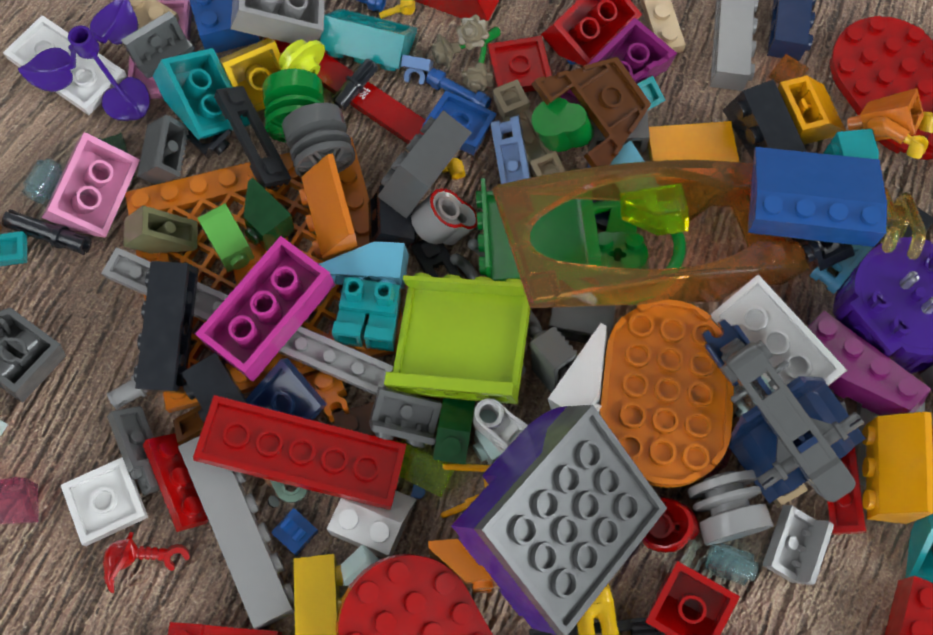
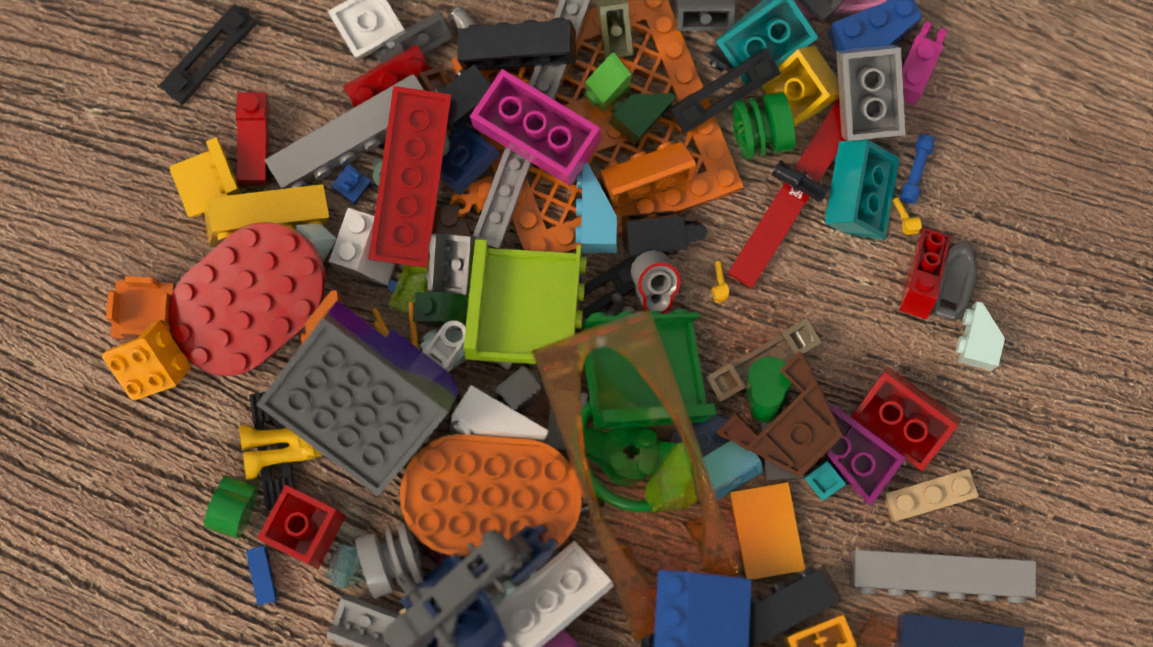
camera: 85 degrees right, 10 degrees up
(124, 552) = (320, 46): red piece -> none
(303, 56) = (812, 124): neon yellow piece -> none
(316, 132) = (719, 152): dark grey wheel -> none
(365, 299) = (548, 221): teal hips -> none
(418, 65) = (834, 242): medium blue tile -> none
(423, 164) = (702, 253): dark grey brick -> none
(438, 80) = (821, 266): blue bar -> none
(470, 115) = (768, 289): blue plate -> none
(471, 34) = (858, 291): dark tan plant -> none
(510, 151) = (736, 344): medium blue plate -> none
(520, 60) = (848, 347): red plate -> none
(664, 536) = (365, 504): red hair -> none

